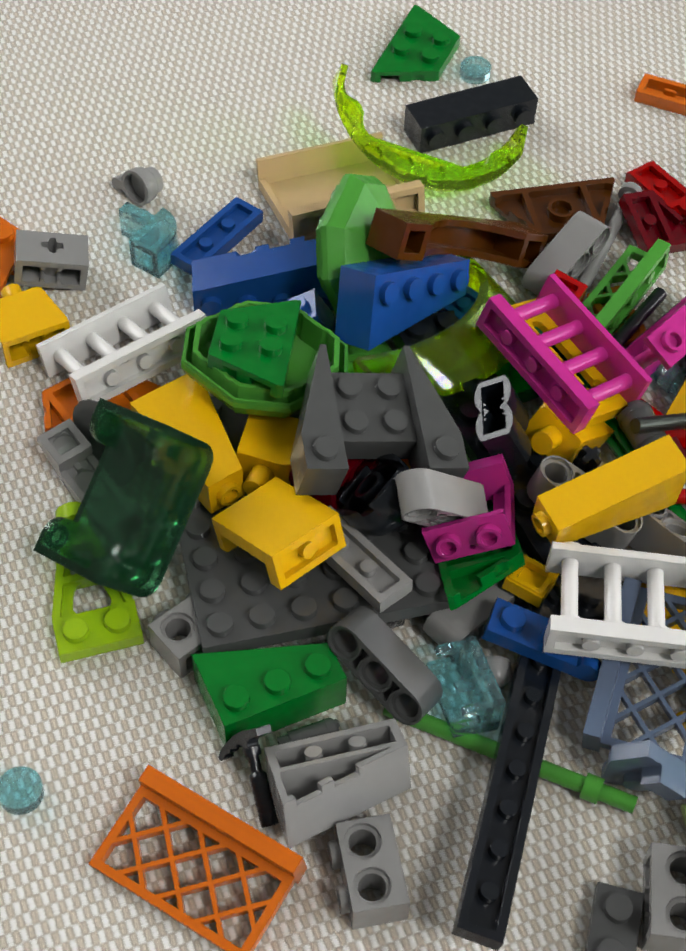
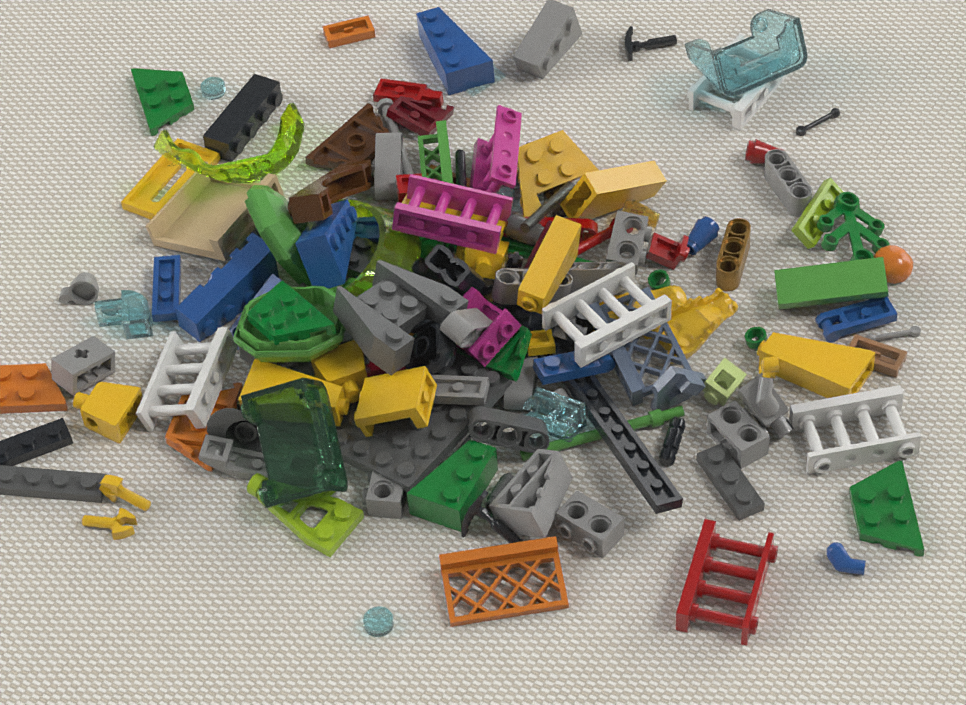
camera: 35 degrees left, 5 degrees down
(378, 113) = (141, 196): none -> yellow piece
(583, 837) = (672, 441): none -> black axle

